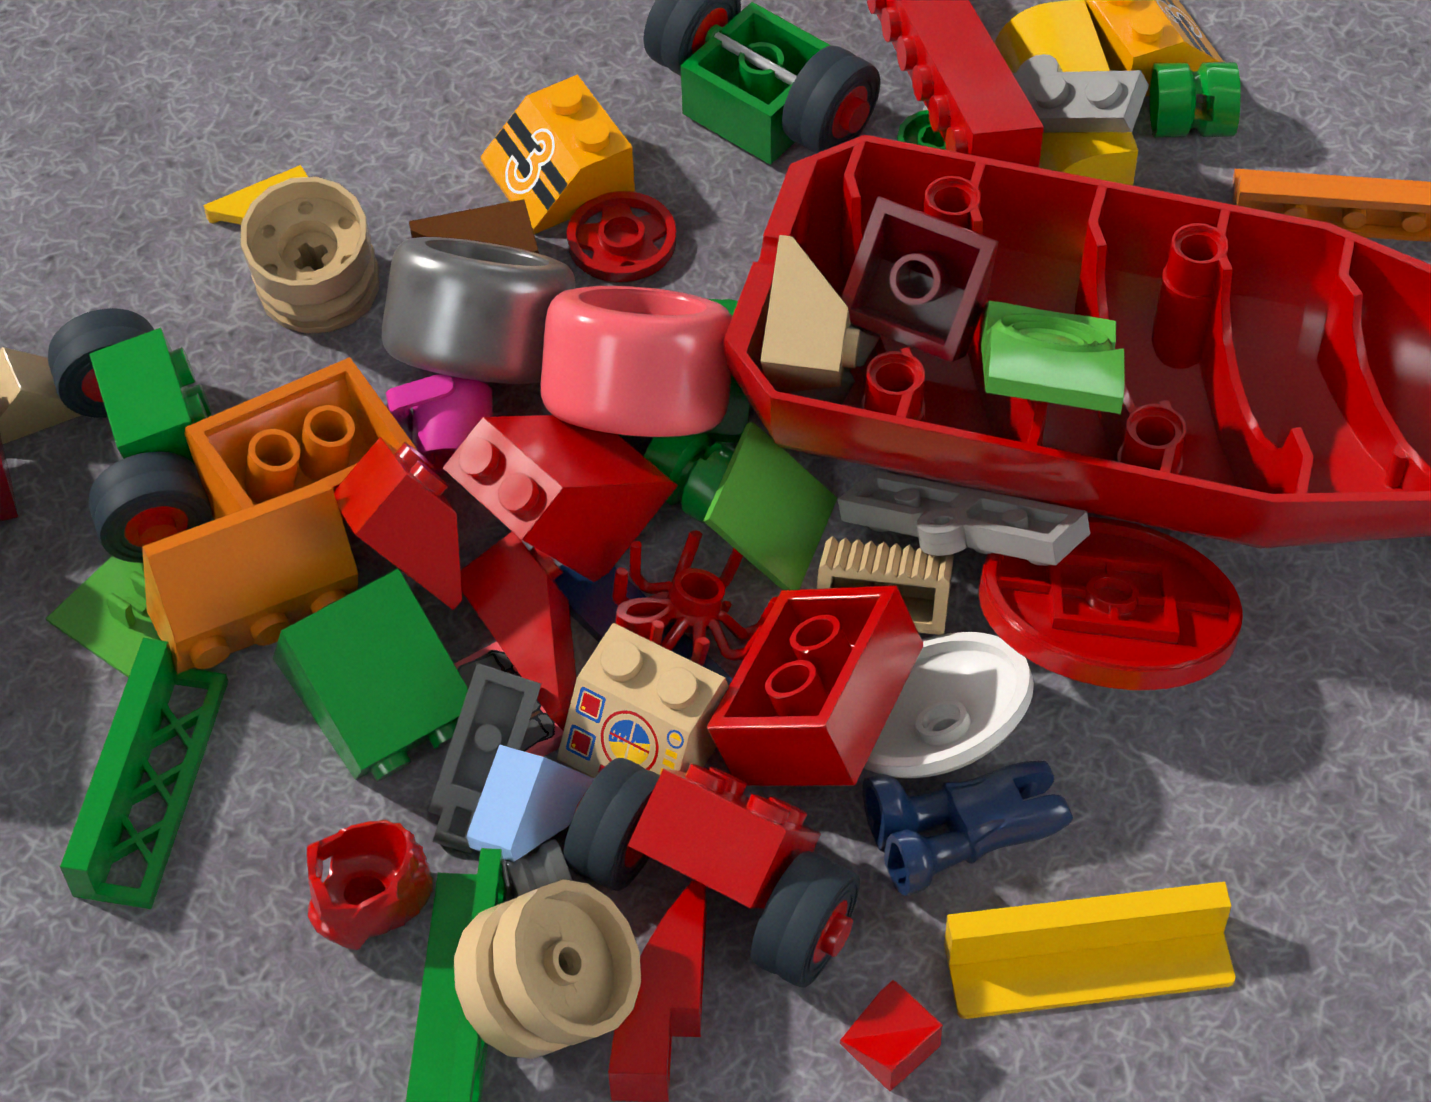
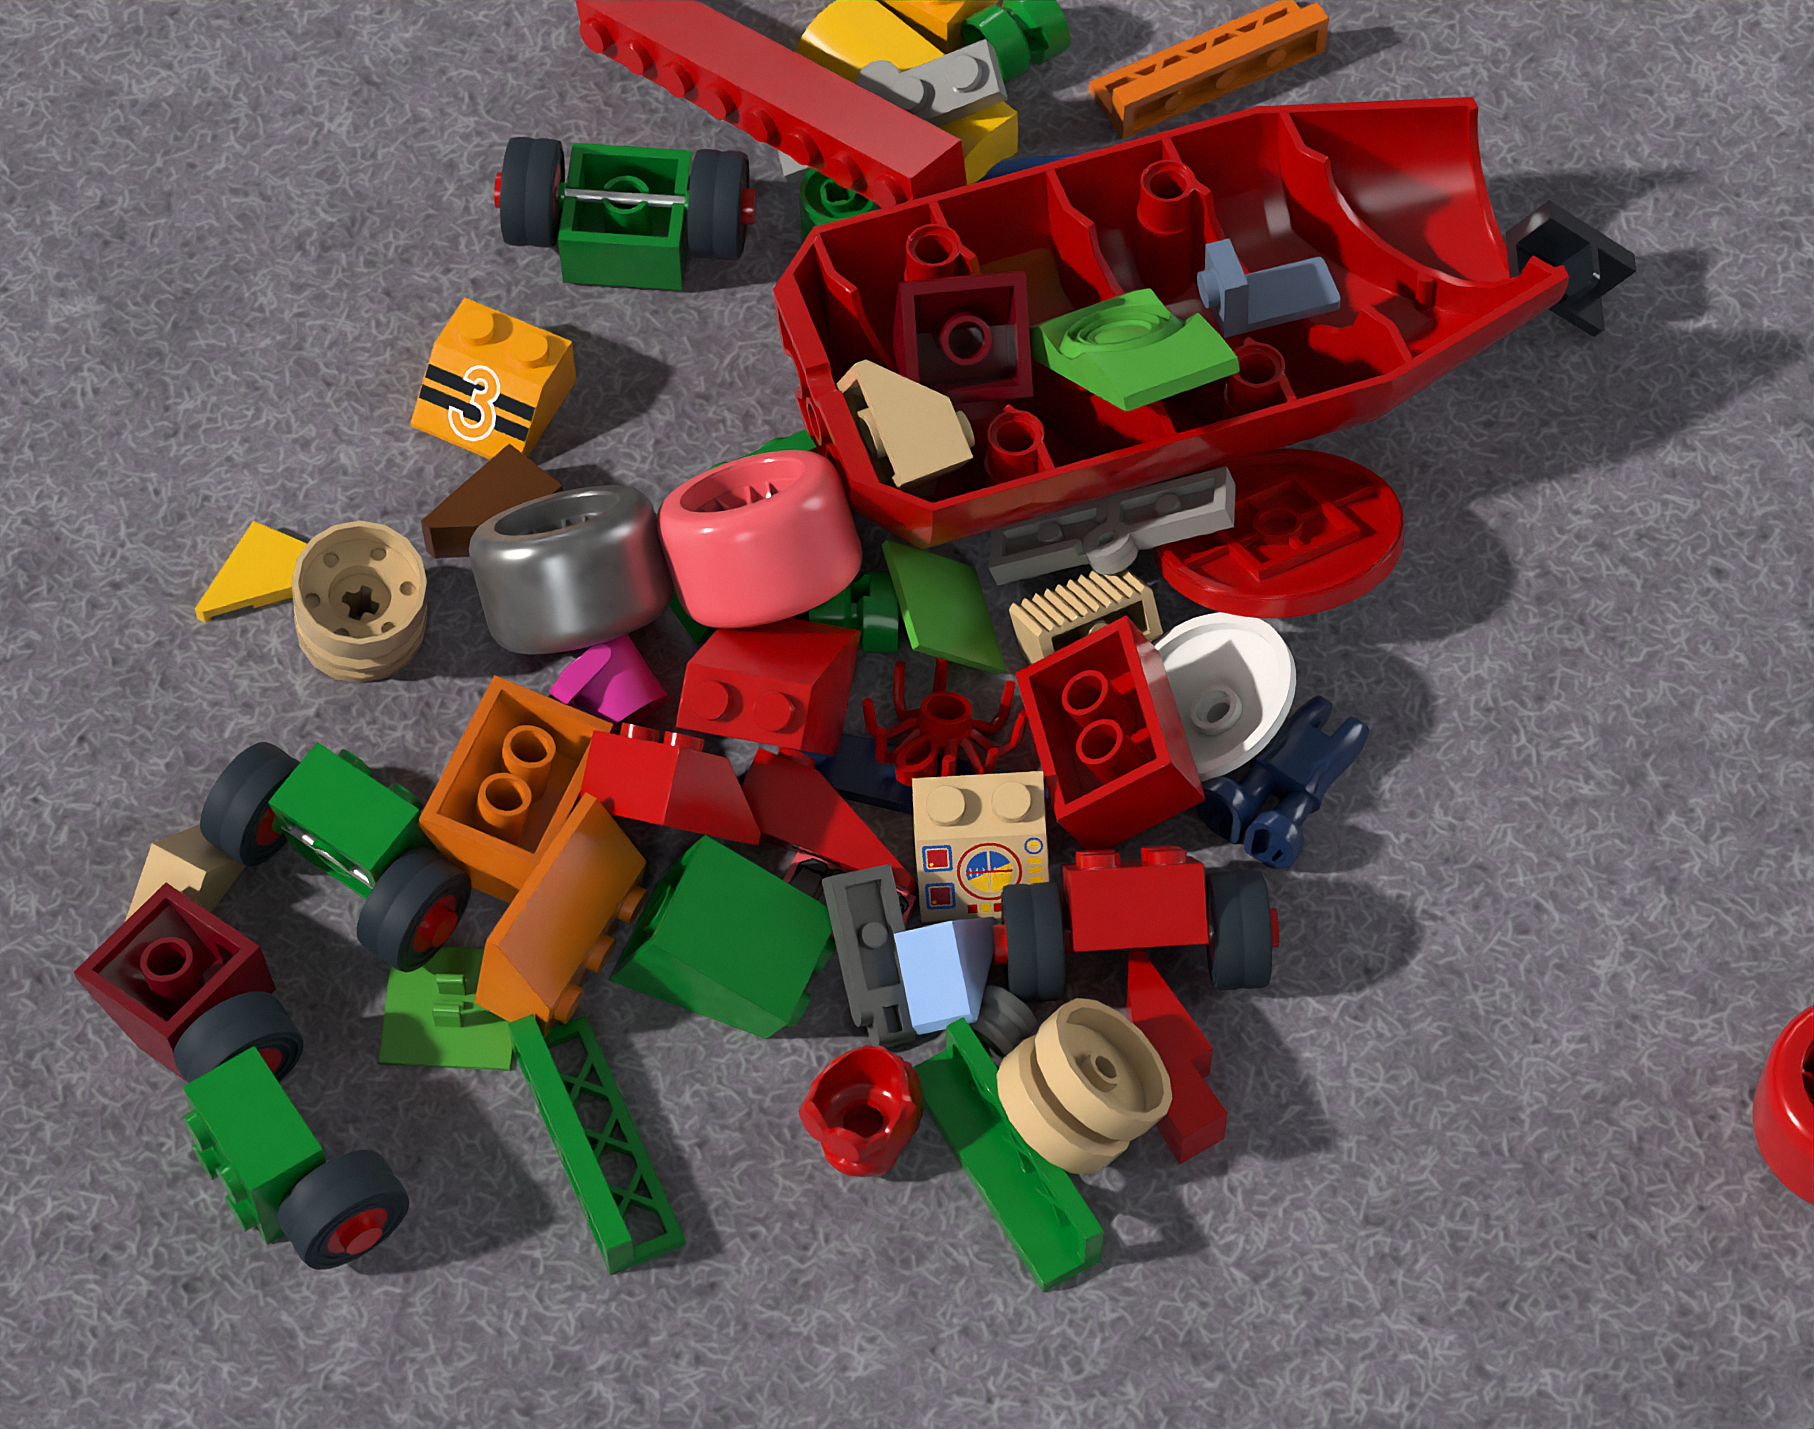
camera: 35 degrees left, 5 degrees up
(621, 237) = (603, 430): red wheel -> none
(893, 1035) = (1359, 982): red slope -> none
(1089, 950) = (1456, 829): yellow panel -> none
(1228, 389) = (1266, 296): none -> sand blue bracket

